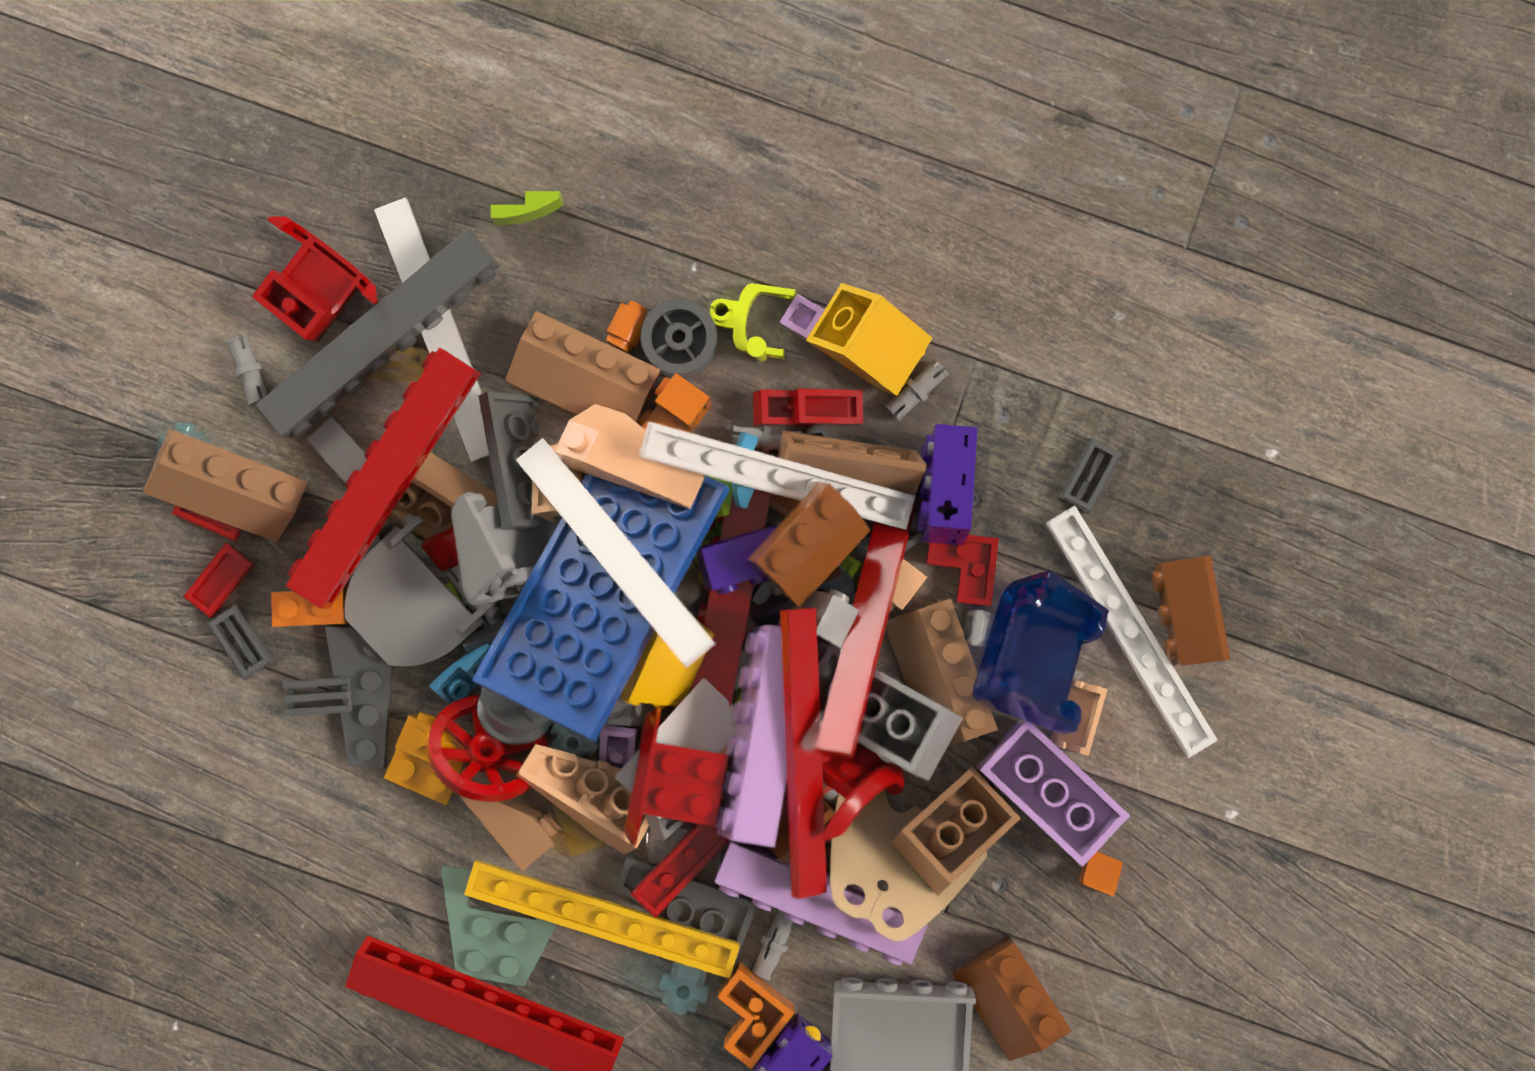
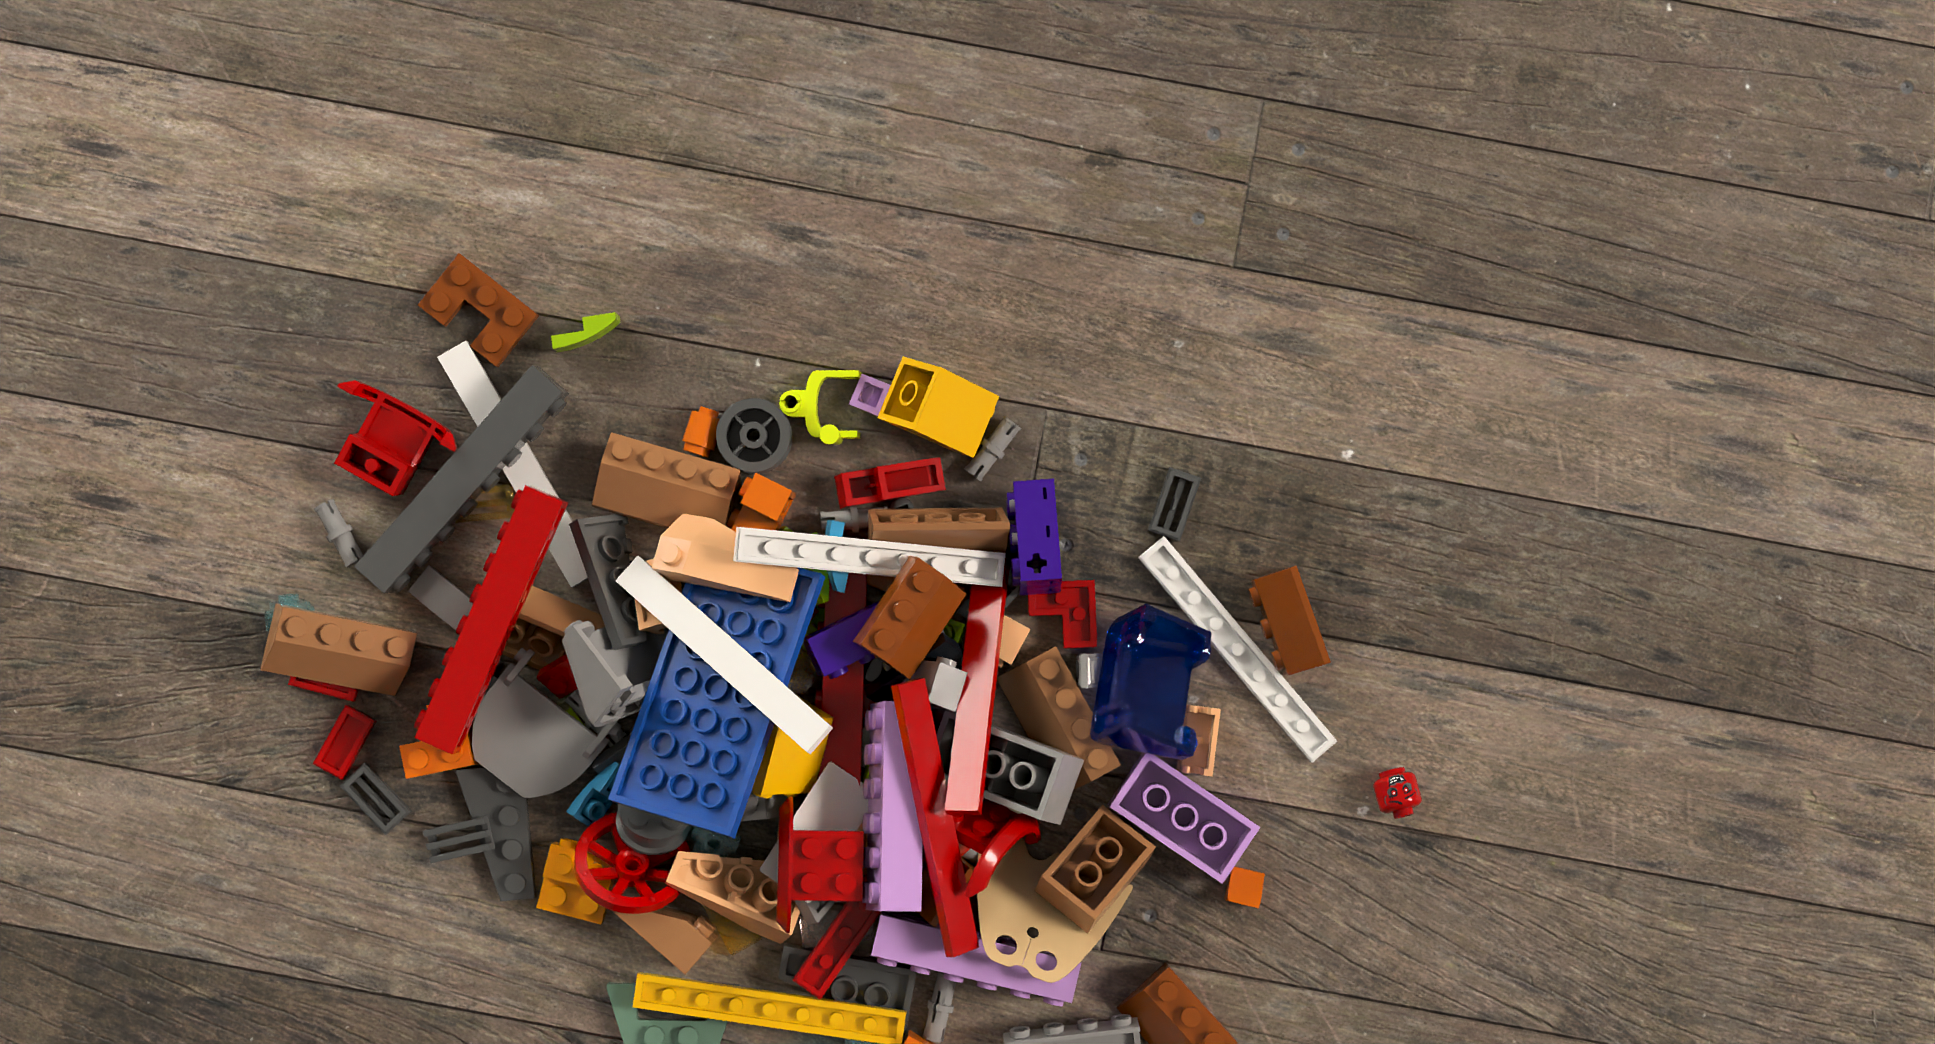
camera: 10 degrees left, 0 degrees up
(416, 141) = (507, 314): none -> dark orange plate
(617, 745) = (757, 839): lavender slope -> none
(1271, 802) = (1397, 792): none -> red head

